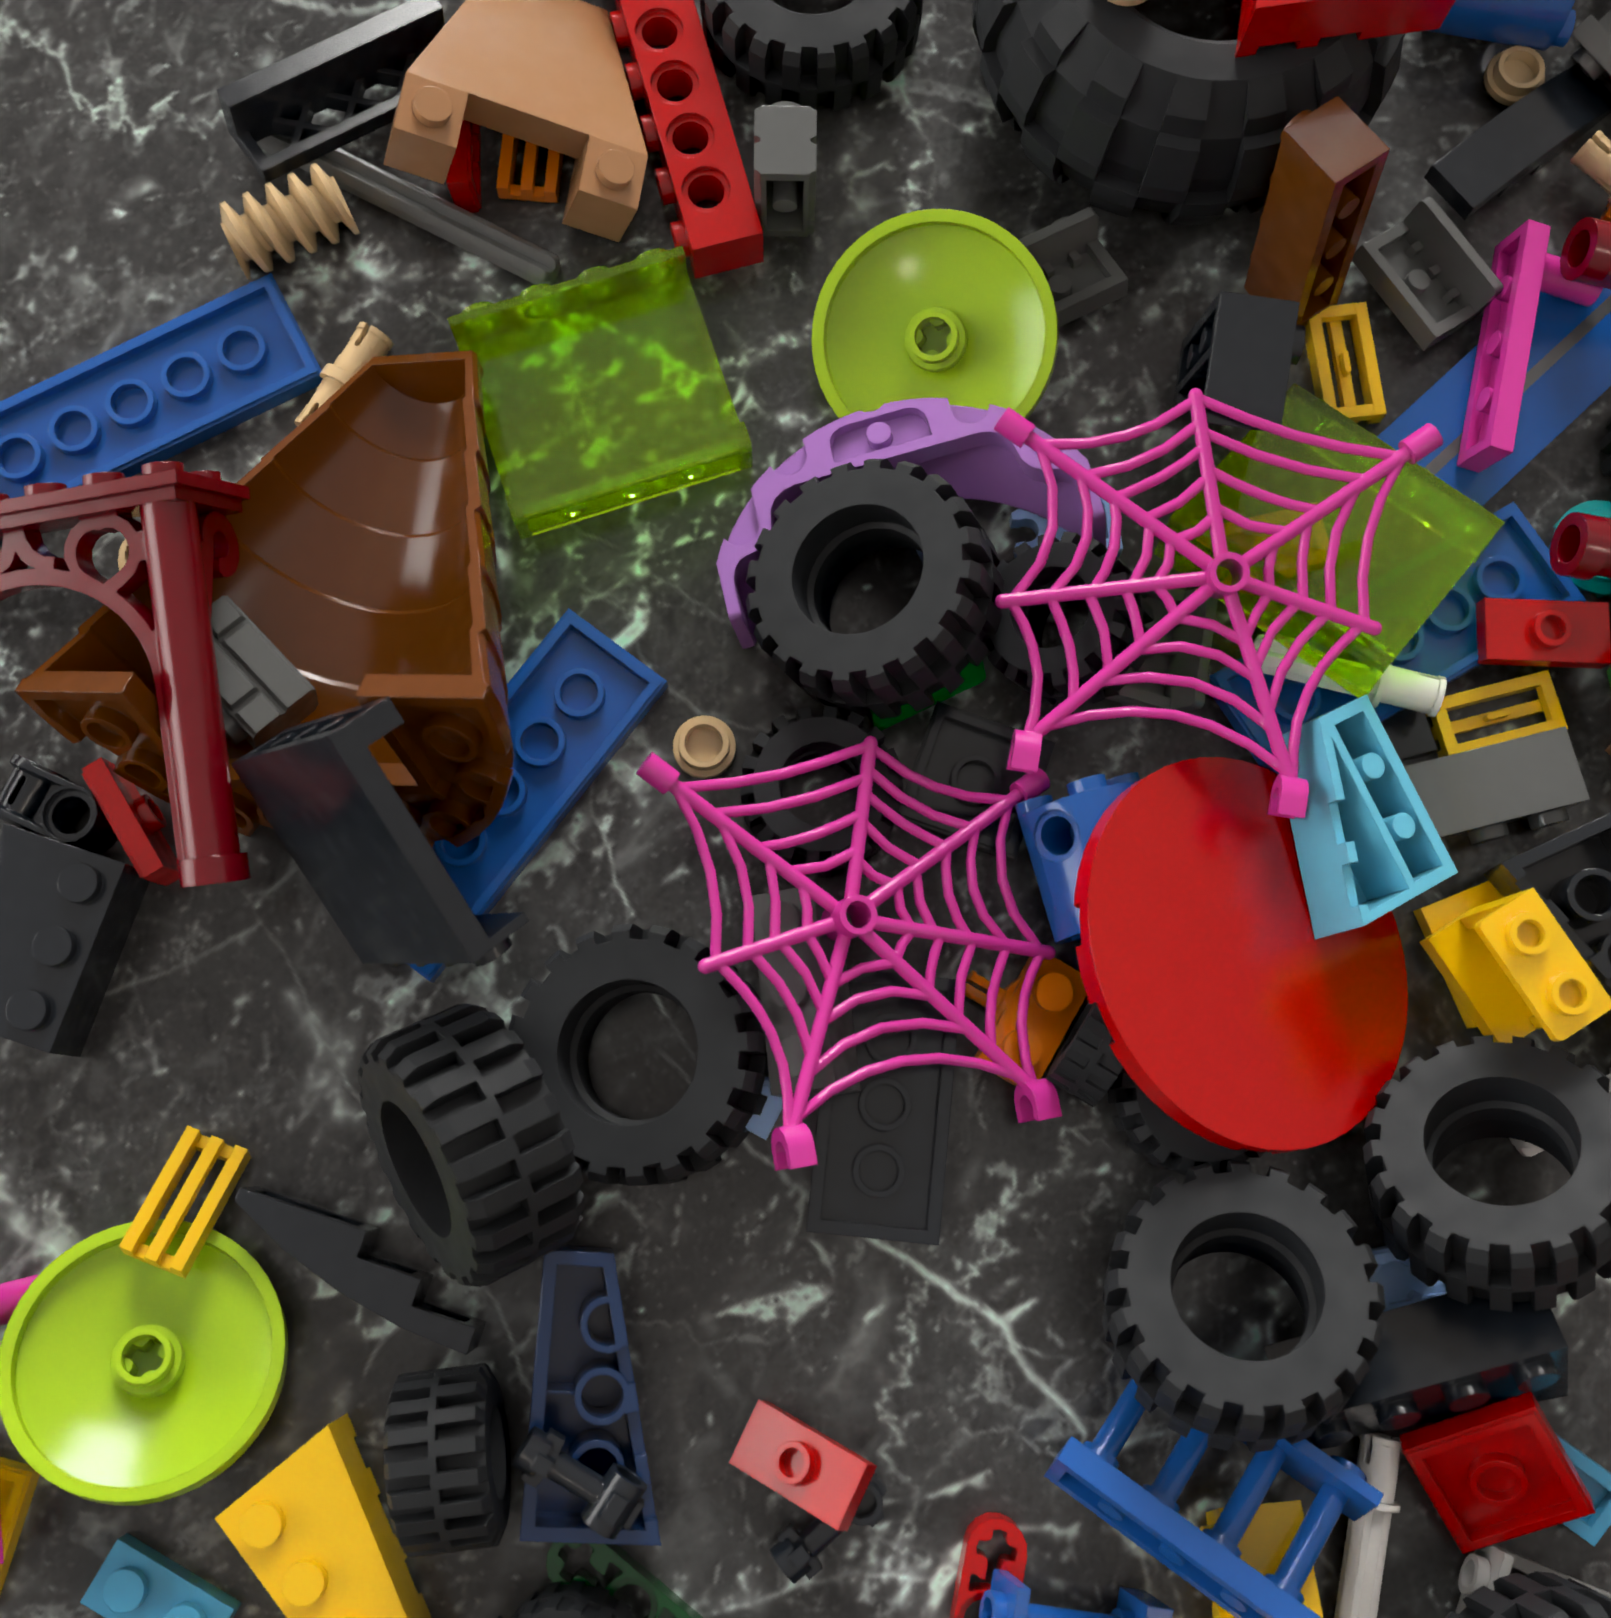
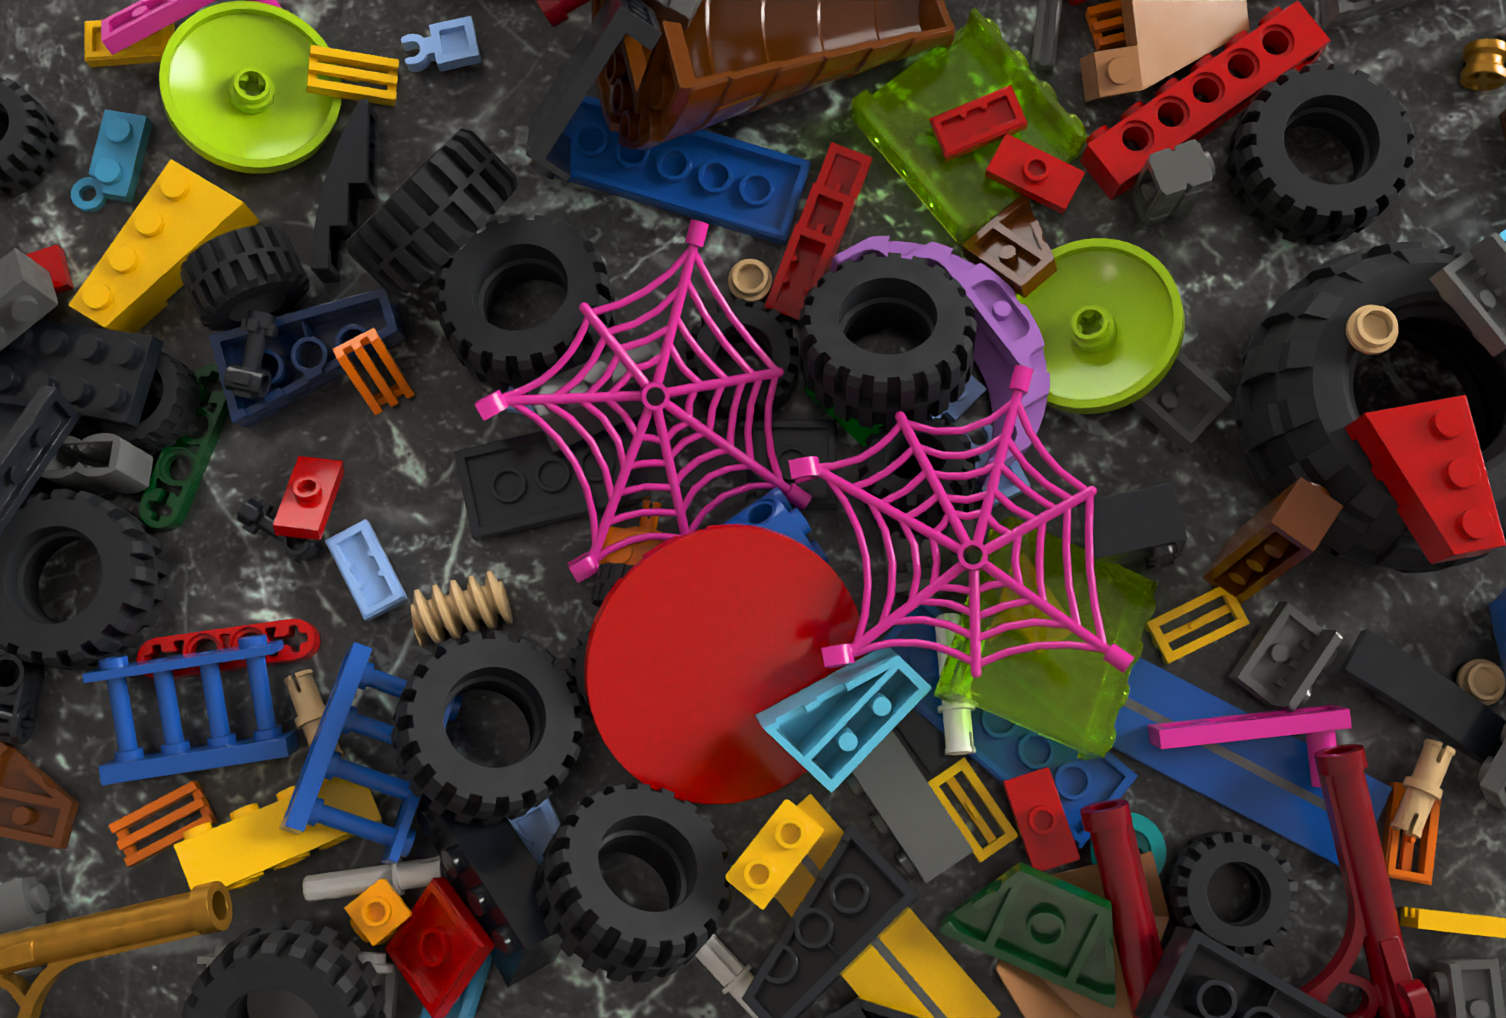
camera: 80 degrees right, 0 degrees up
(194, 1041) = (450, 45): none -> light blue plate
(604, 376) = (978, 123): none -> red plate
(673, 634) = (819, 228): none -> red slope
(679, 1304) = (387, 393): none -> orange tile
(701, 333) = (1034, 173): none -> red plate
(793, 394) = (1013, 248): none -> reddish brown wing
(930, 1413) = (366, 570): none -> light blue plate
(1032, 1296) = (458, 608): none -> tan piece
(1099, 1558) = (307, 703): none -> tan pin
(1427, 1547) = (377, 913): none -> light orange bracket

